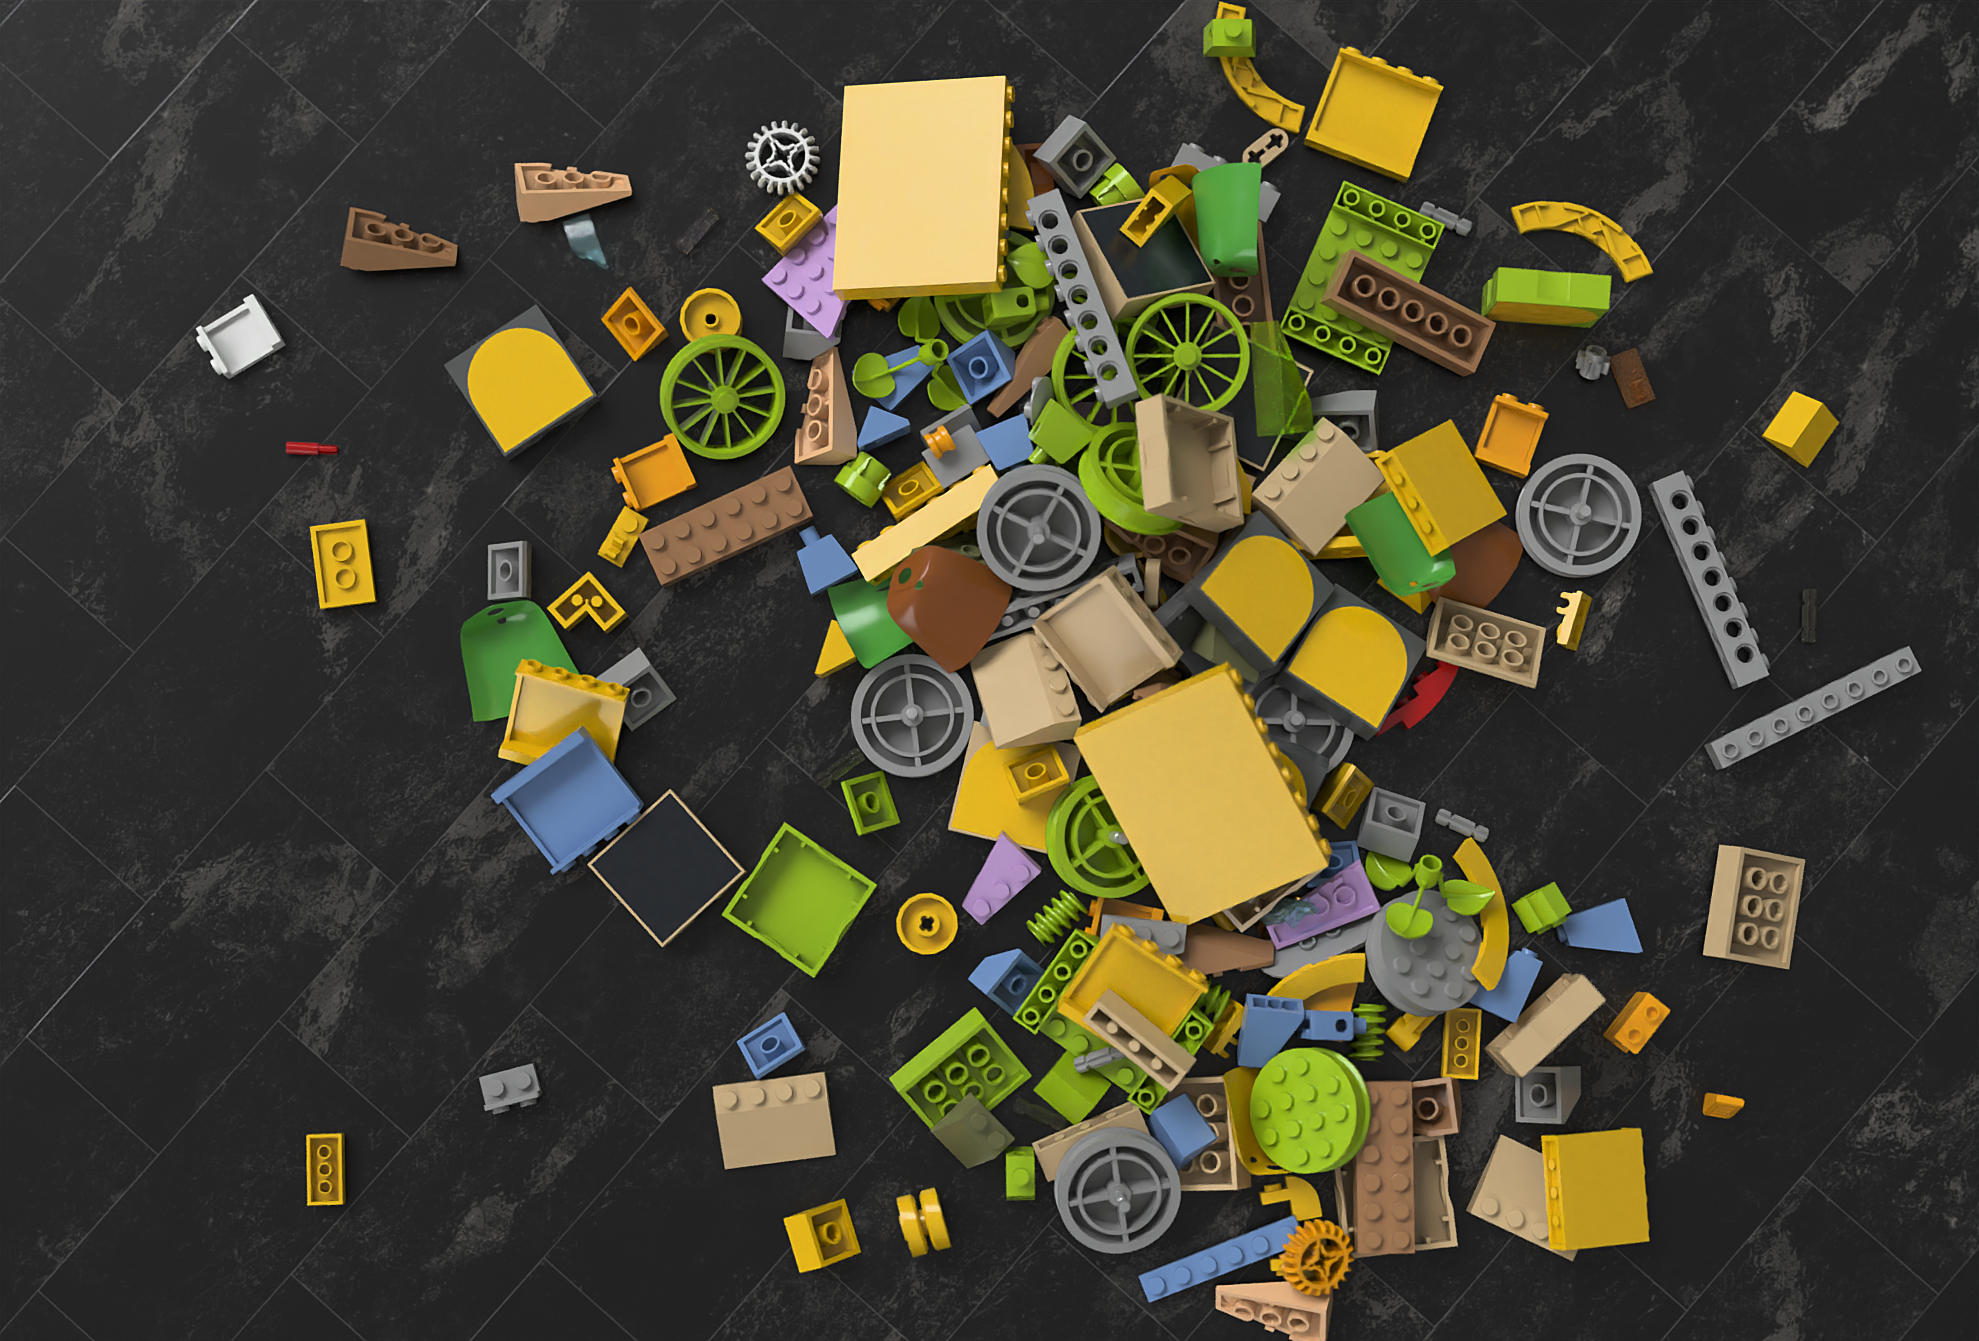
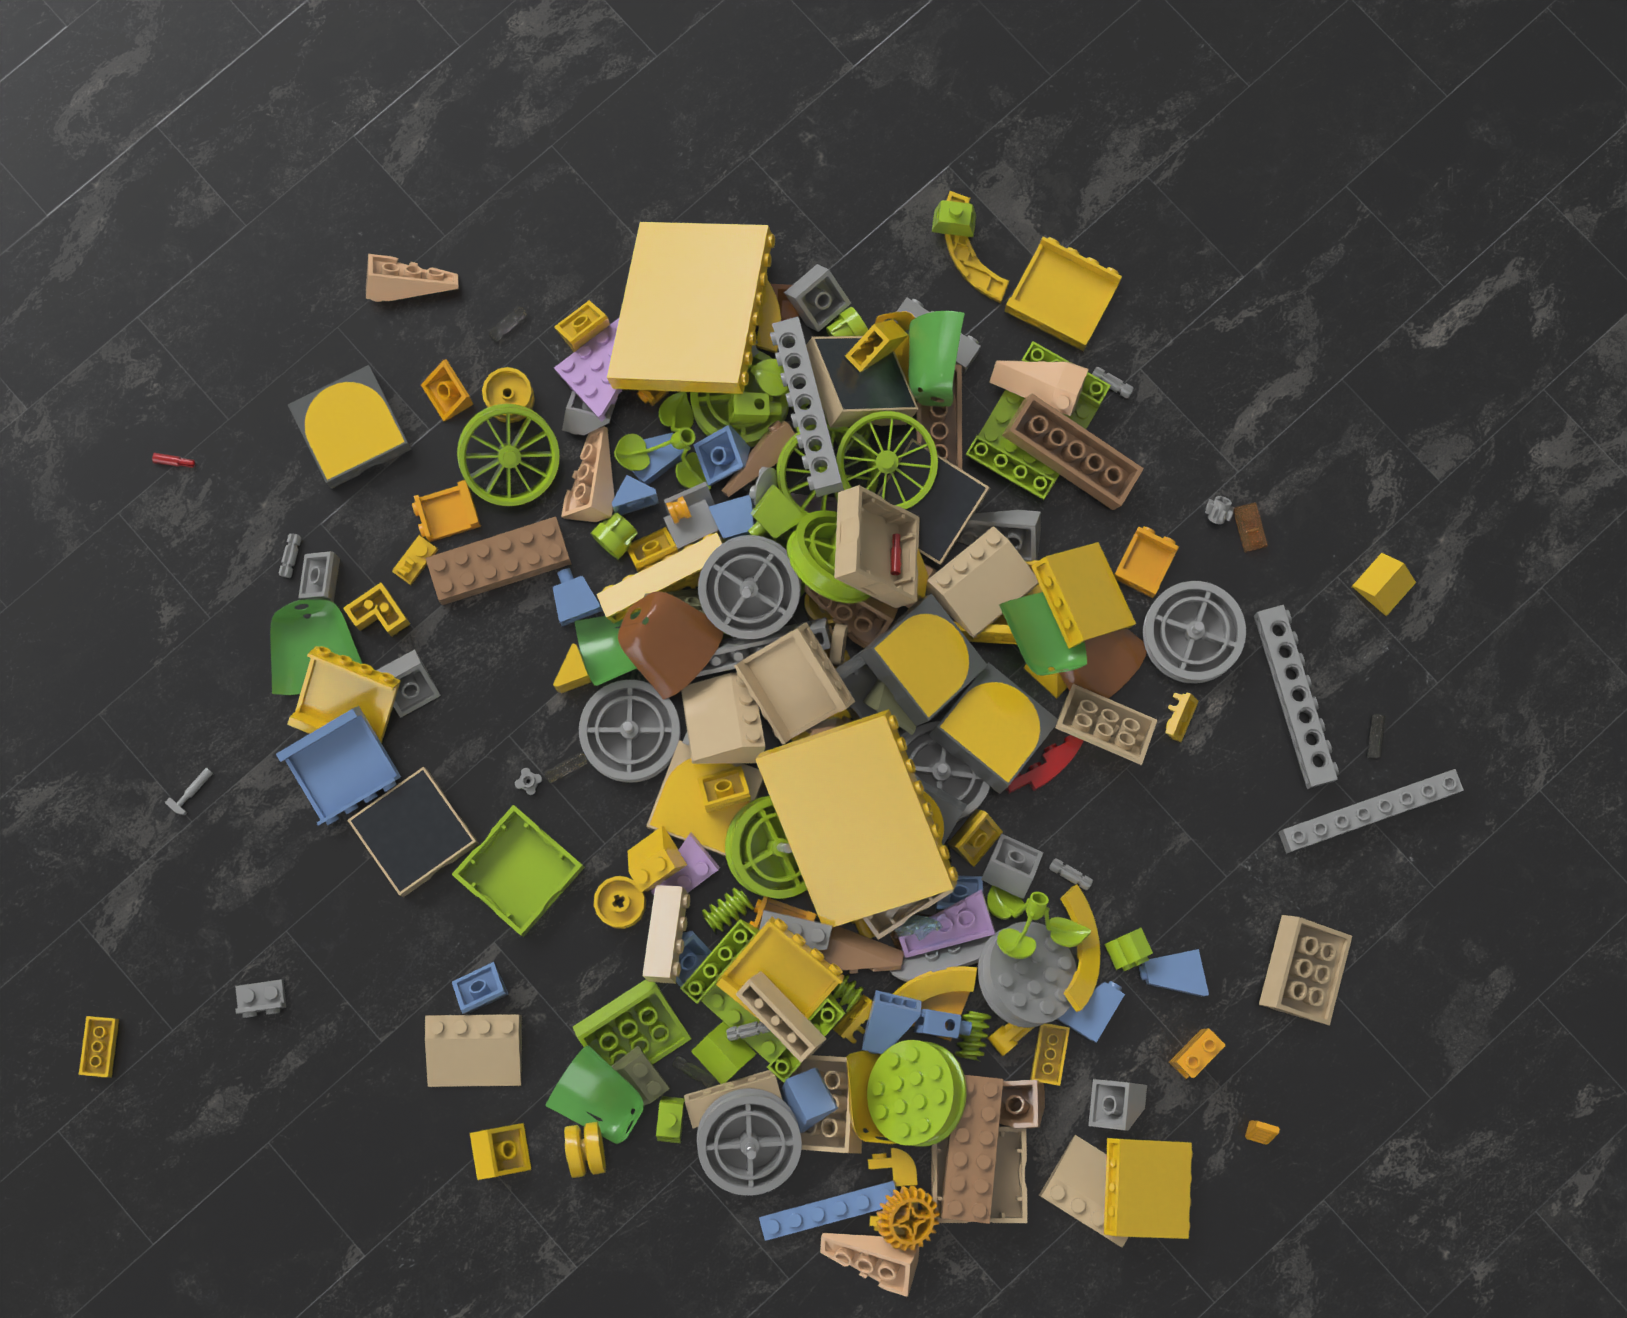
camera: 10 degrees right, 5 degrees down
(240, 338) = (129, 366): white panel -> none
(343, 564) = (185, 555): yellow plate -> none
(381, 245) = (250, 305): medium nougat wedge -> none
(389, 852) = (189, 792): none -> light grey piece
(470, 549) = (290, 555): none -> light grey axle
(584, 239) = (415, 319): clear light blue slope -> none
(770, 138) = (576, 278): white gear -> none
(793, 783) = (534, 778): none -> light grey plate
(870, 803) = (586, 798): lime slope -> none
(933, 1150) = (600, 1090): none -> bright green piece
(962, 869) = (654, 860): none -> yellow slope
(989, 956) = (665, 934): none -> tan brick
(1211, 469) = (896, 555): none -> red pin
(1262, 143) = (976, 316): tan beam -> none
(1279, 390) = (958, 497): clear neon green wedge -> none
(1373, 230) = (1052, 382): none -> light nougat wedge
(1544, 1024) = (1119, 1044): tan tile -> none
(1546, 297) = (1186, 451): lime tile -> none
(1589, 225) = (1228, 401): yellow tile -> none

